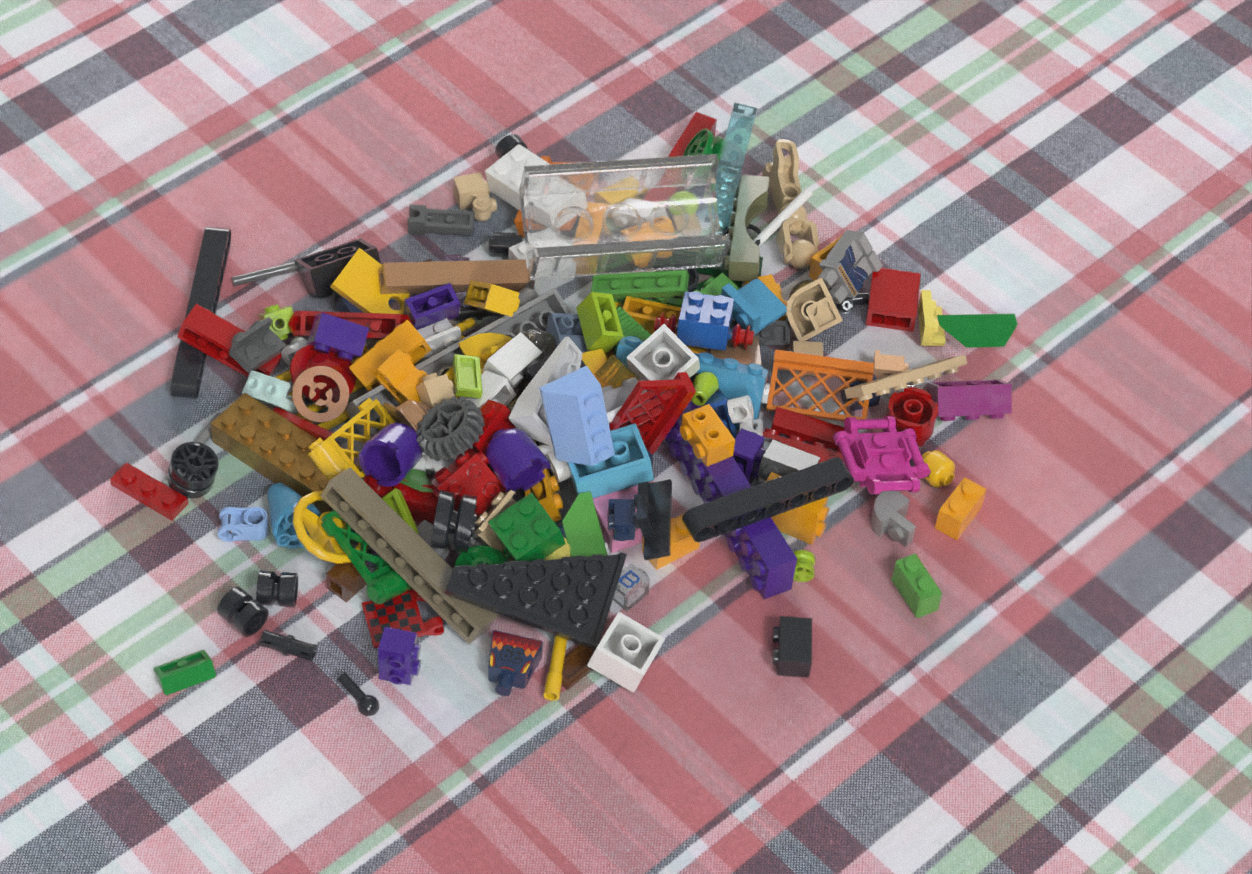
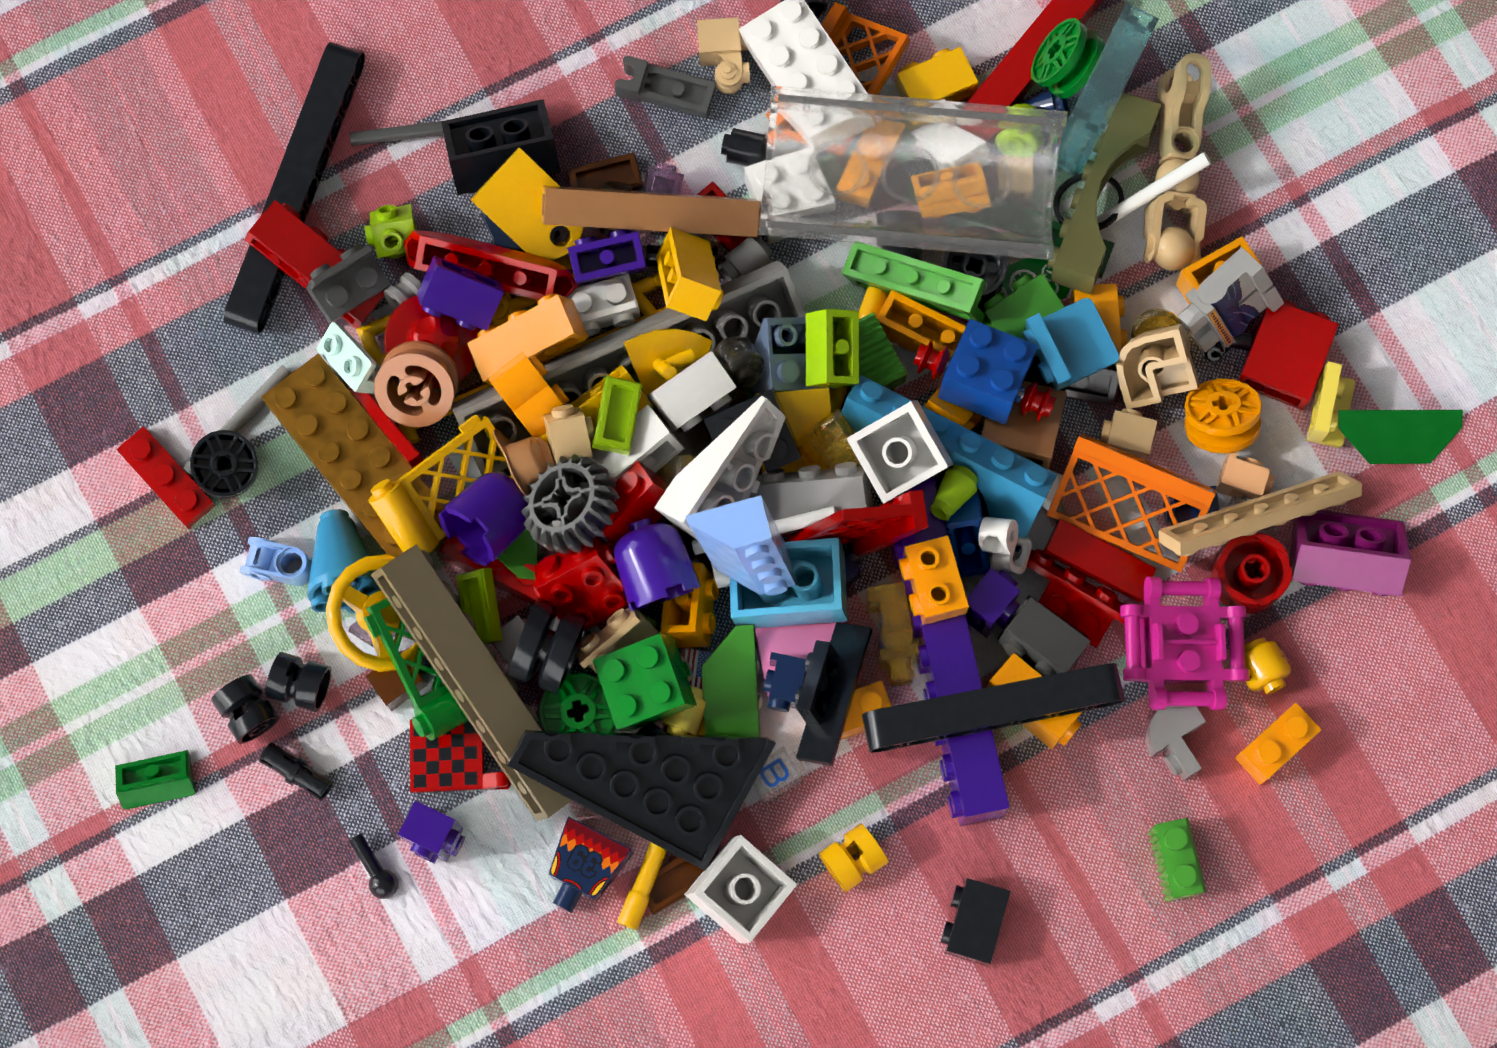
camera: 20 degrees right, 25 degrees up
(685, 478) = (896, 632): none -> clear yellow hips
(697, 623) = (841, 864): none -> yellow wheel
(804, 567) = (1025, 791): lime wheel -> none
(863, 333) = (1223, 416): none -> light orange wheel

